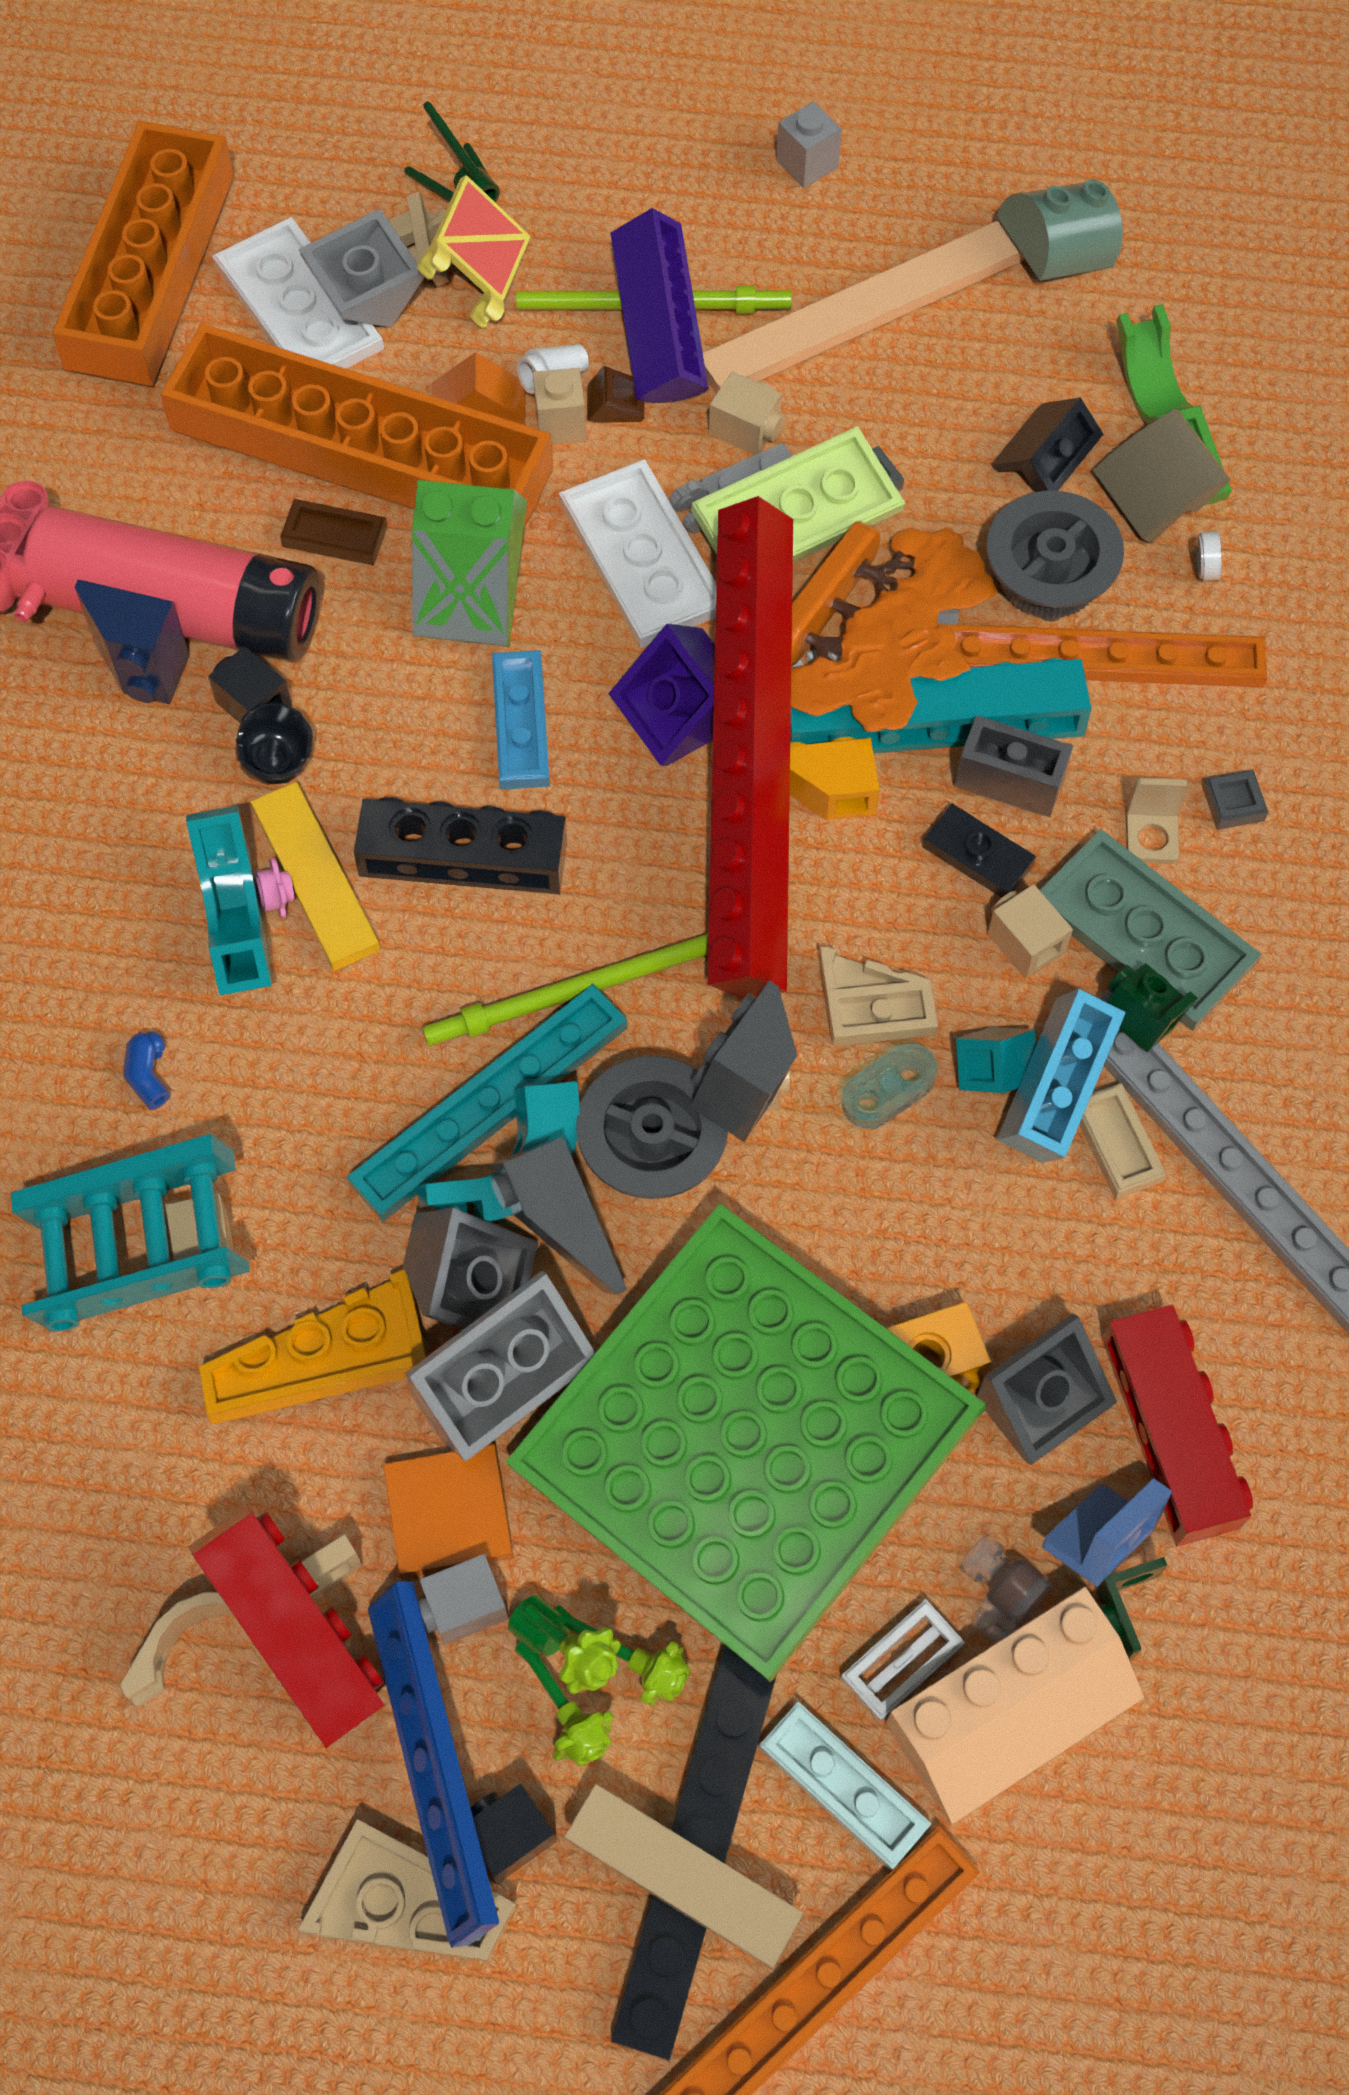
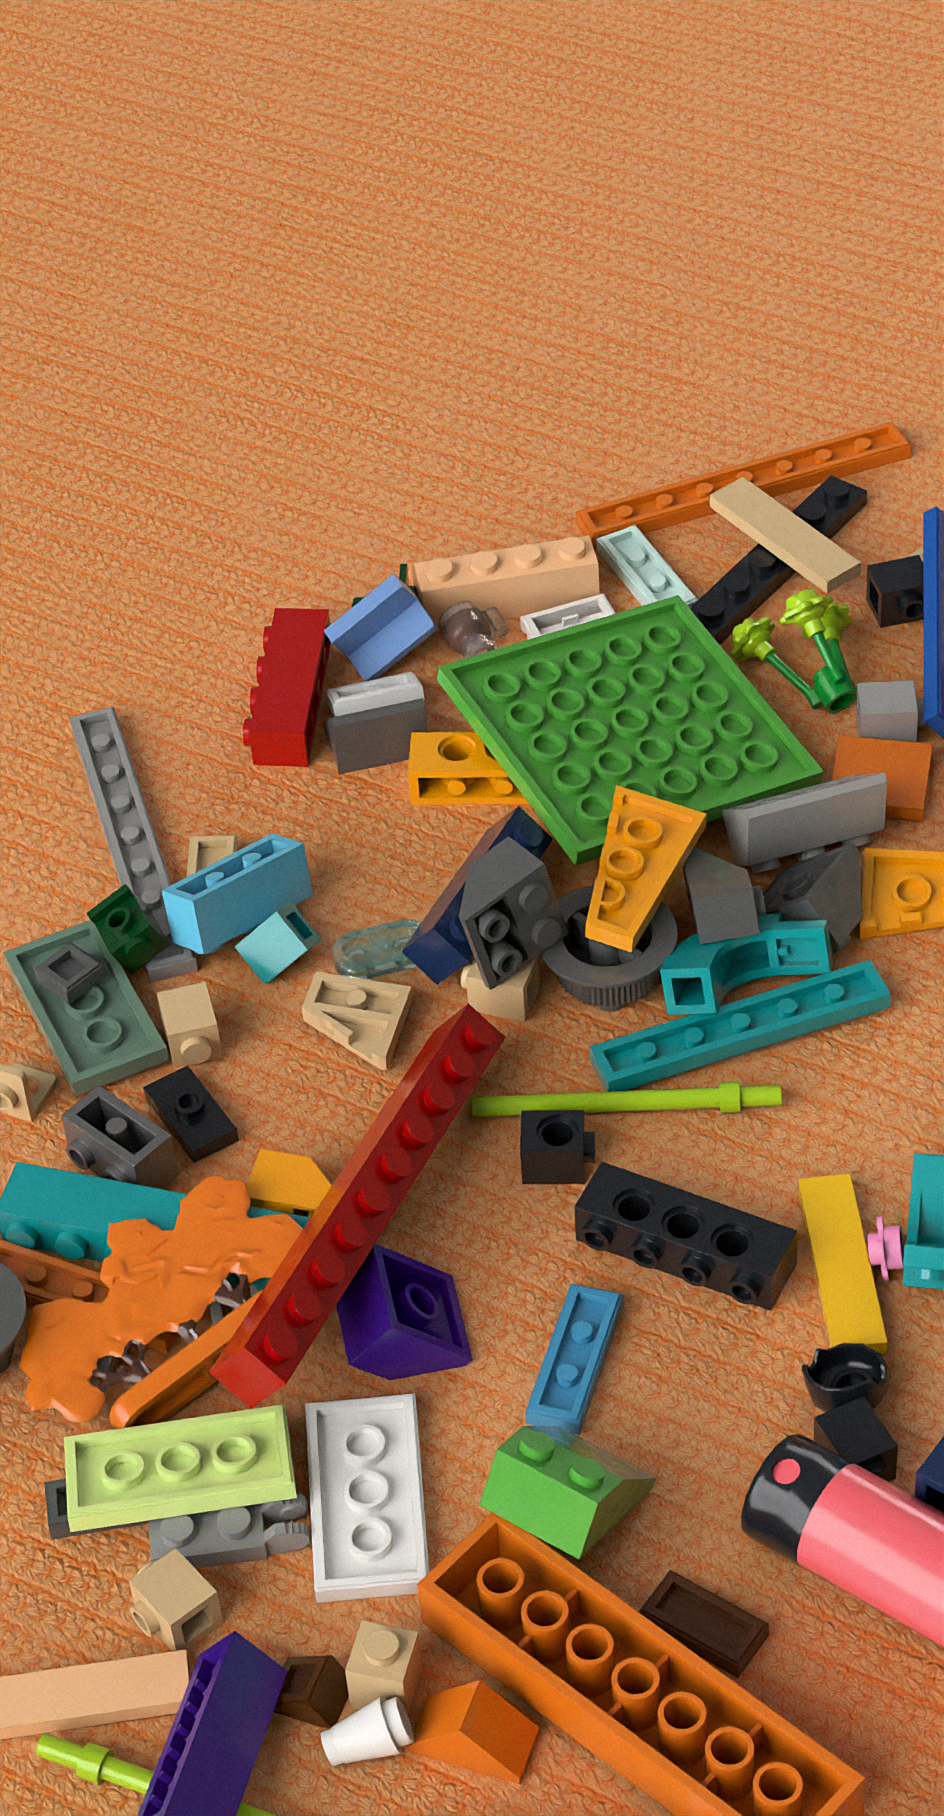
camera: 155 degrees left, 20 degrees down
(622, 883) = (555, 1147): none -> black brick
(646, 1208) = (638, 864): none -> light orange wing
(815, 1158) = (440, 942): none -> dark blue brick
(1036, 1474) = (374, 694): none -> white tile
(1176, 938) = (69, 973): none -> dark grey tile

